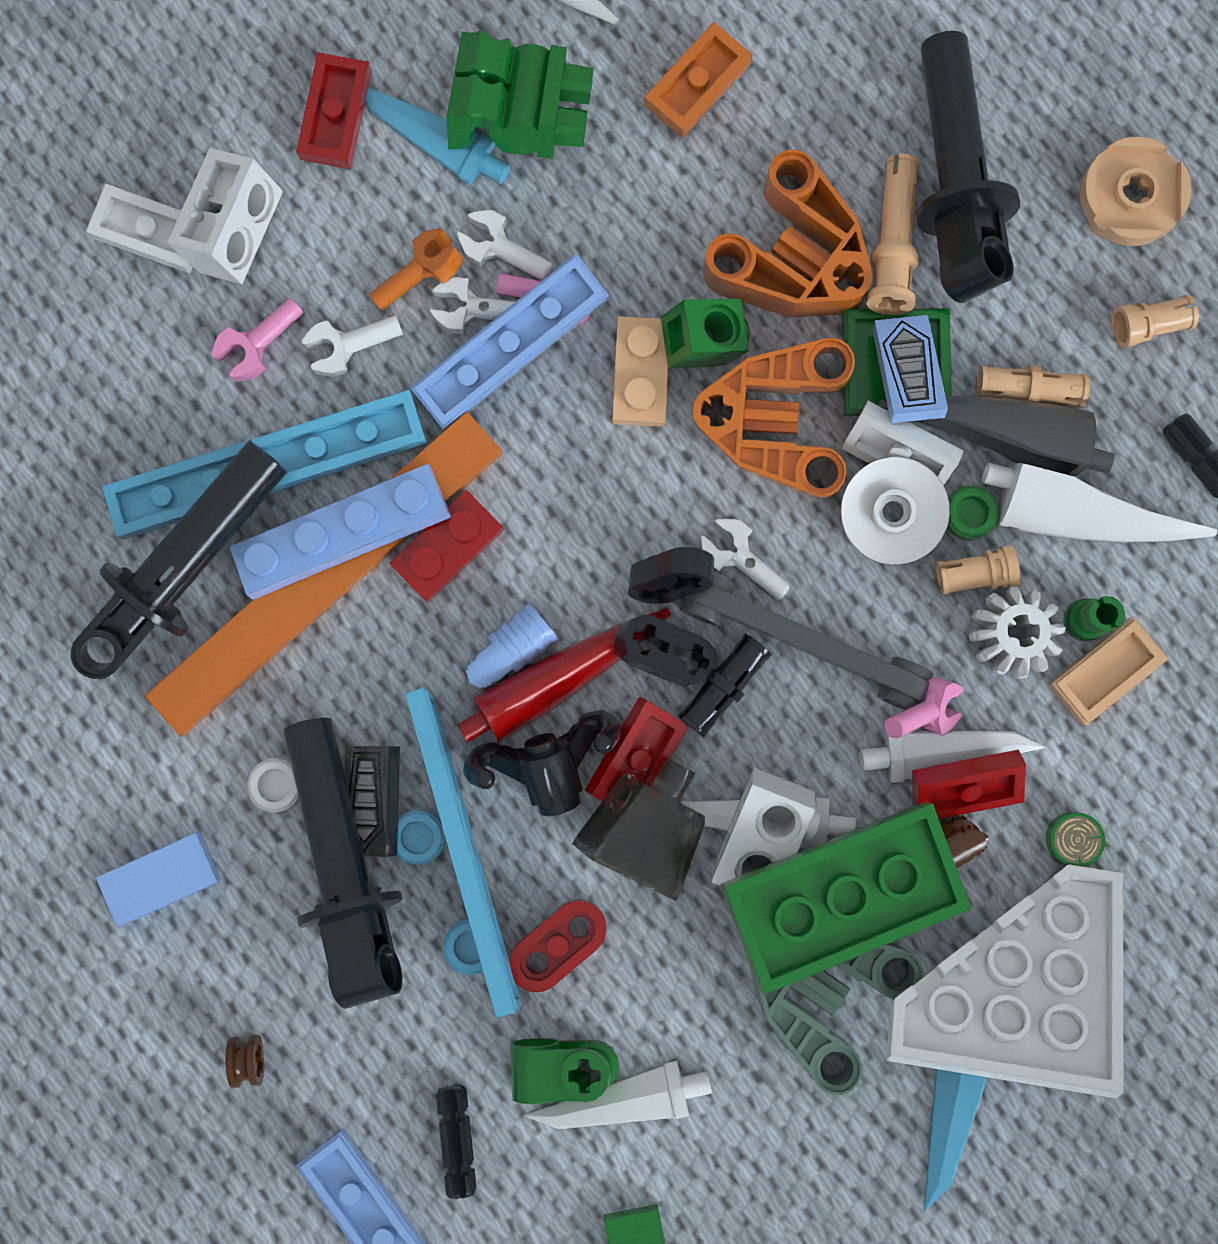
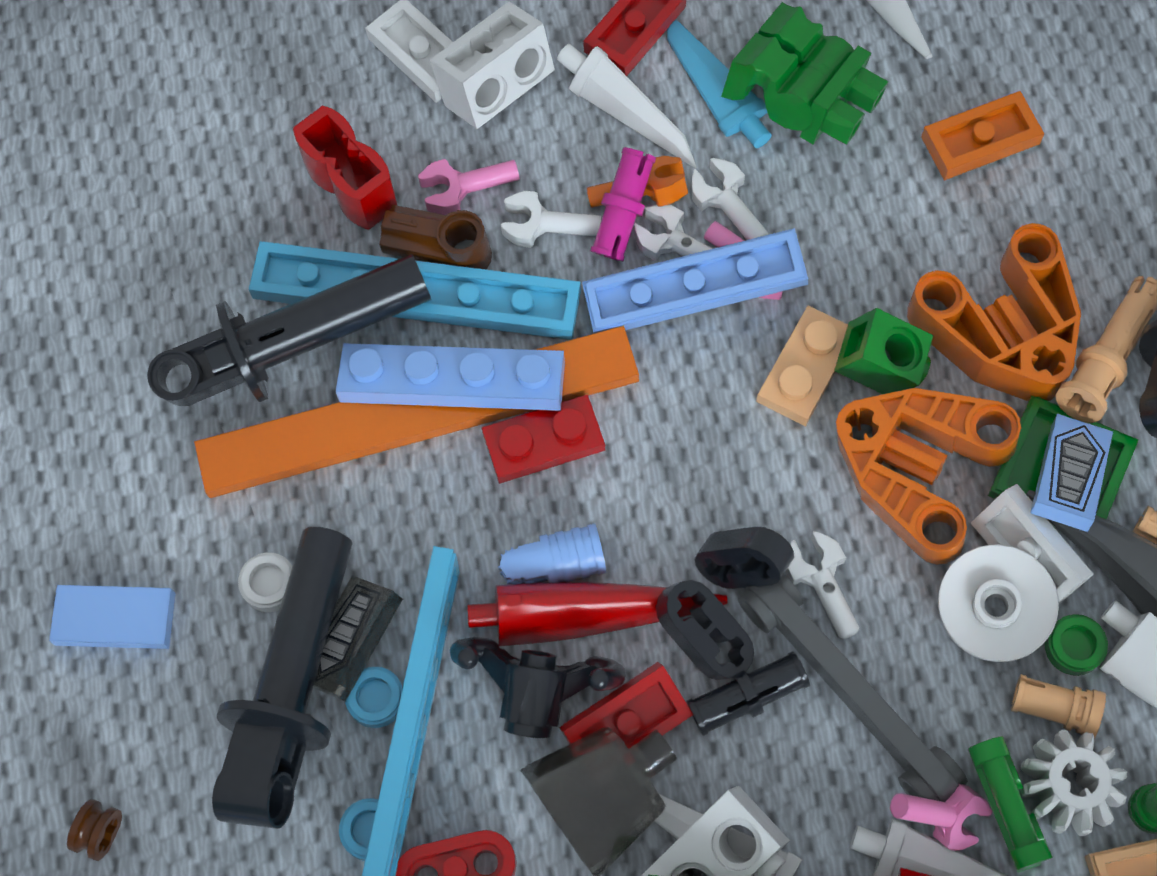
camera: 30 degrees right, 15 degrees down
(142, 380) = (345, 167): none -> red brick
(256, 408) = (434, 236): none -> reddish brown piece
(347, 189) = (613, 92): none -> white bar
(411, 298) = (623, 204): none -> dark pink pin
(990, 693) = (1002, 789): none -> green plate

